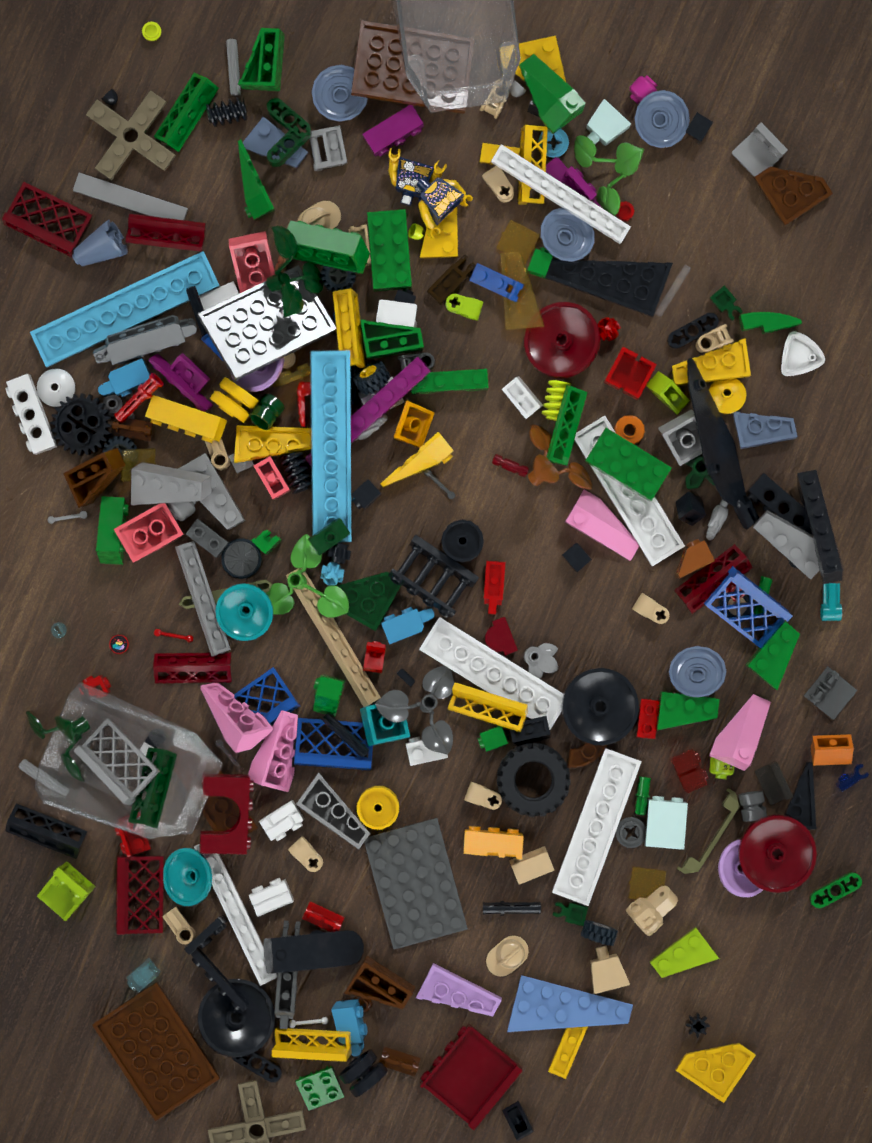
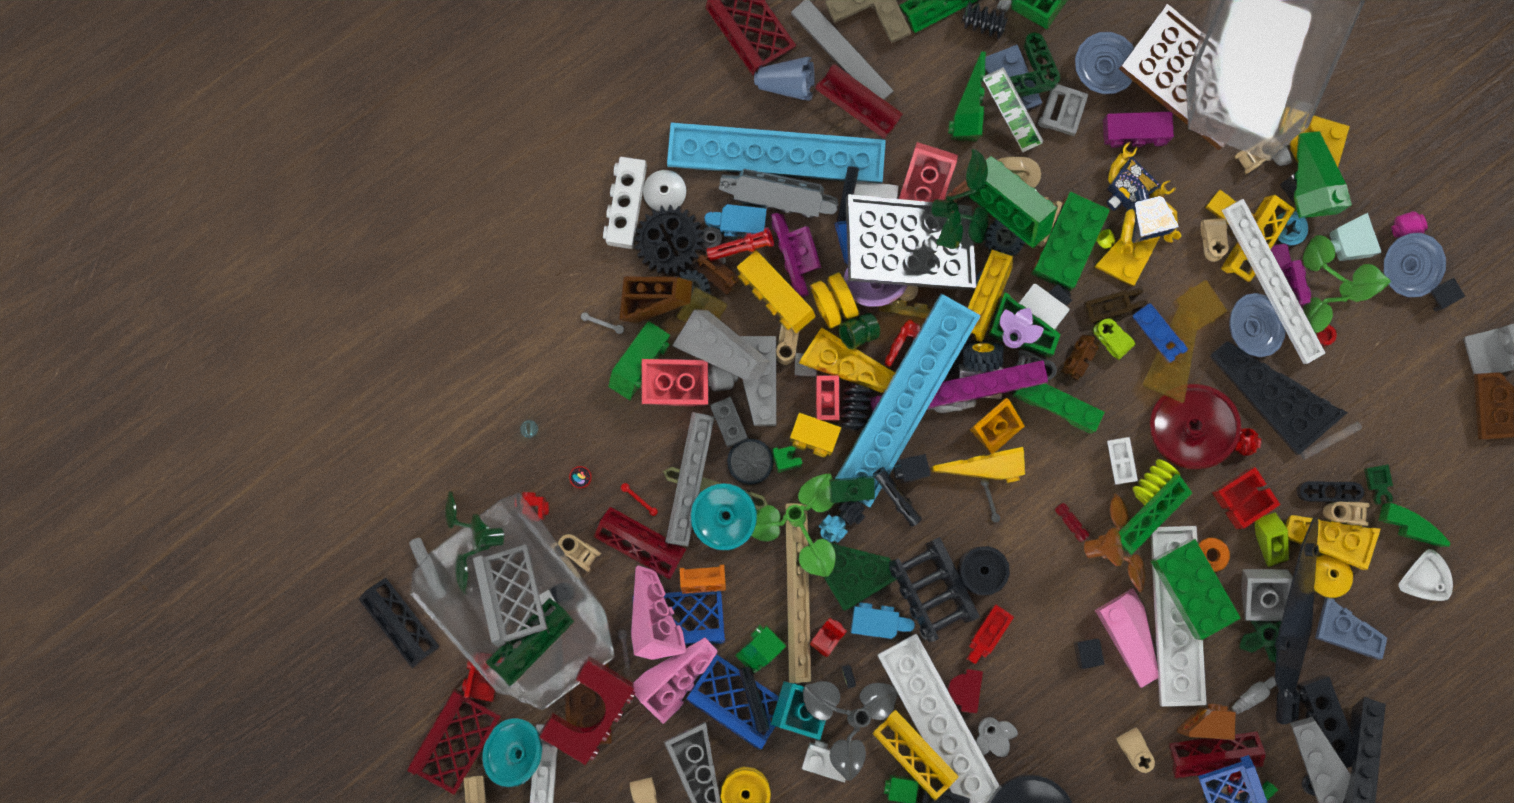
camera: 30 degrees right, 5 degrees down
(66, 890) = (383, 695): lime bracket -> none
(151, 700) = (580, 552): none -> tan piece
(256, 668) = (702, 580): none -> orange hinge
(276, 511) = (814, 435): none -> yellow brick
(282, 820) = (640, 749): white brick -> none
(287, 173) = (1013, 109): none -> tile
(373, 525) = (903, 504): none -> black pin
(386, 339) = (1021, 326): none -> lavender plate
(446, 344) = (1084, 348): none -> reddish brown hinge
(540, 262) = (1213, 338): green brick -> none
(690, 508) = (1231, 669): black panel -> none

